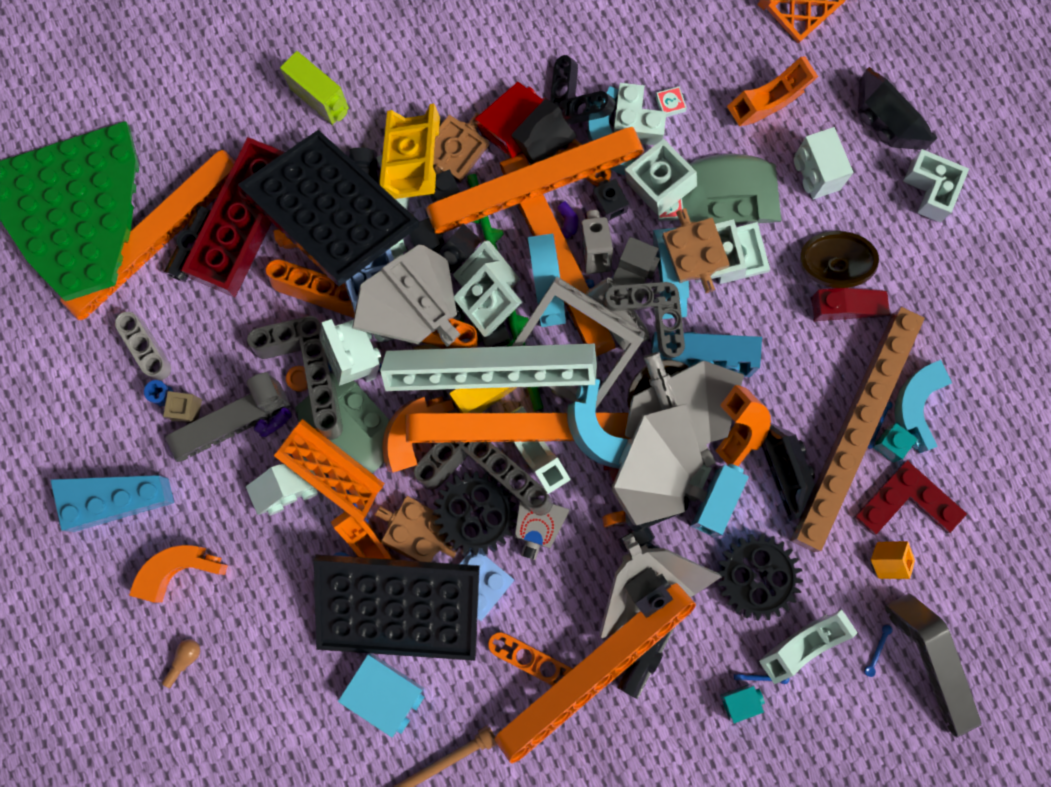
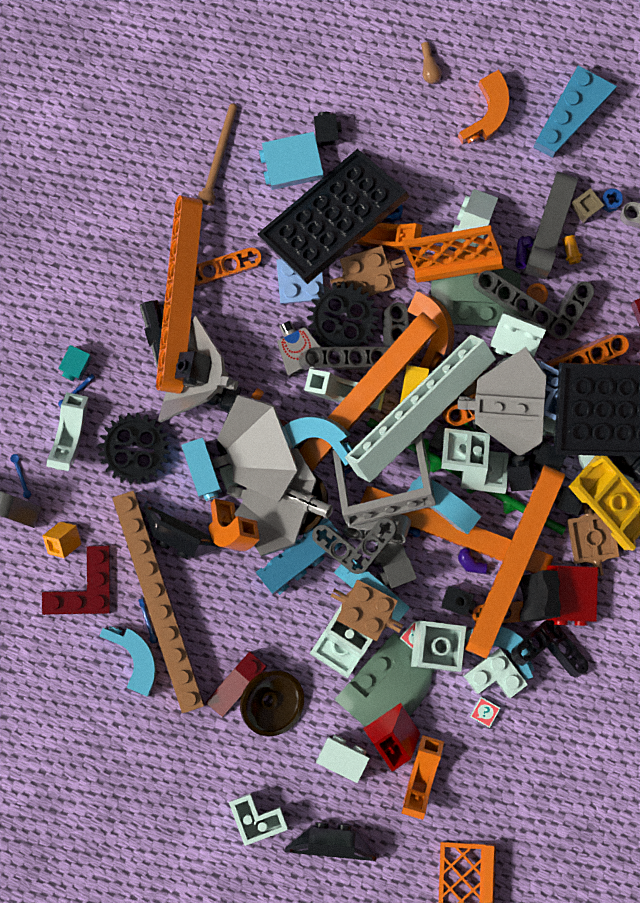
camera: 135 degrees right, 5 degrees up
(233, 385) = (572, 250): none -> light orange pin
(324, 693) = (327, 129): none -> black brick
(596, 243) = (432, 556): light grey torso -> none
(766, 143) = (394, 736): none -> red slope
(895, 442) = (127, 615): teal brick -> none

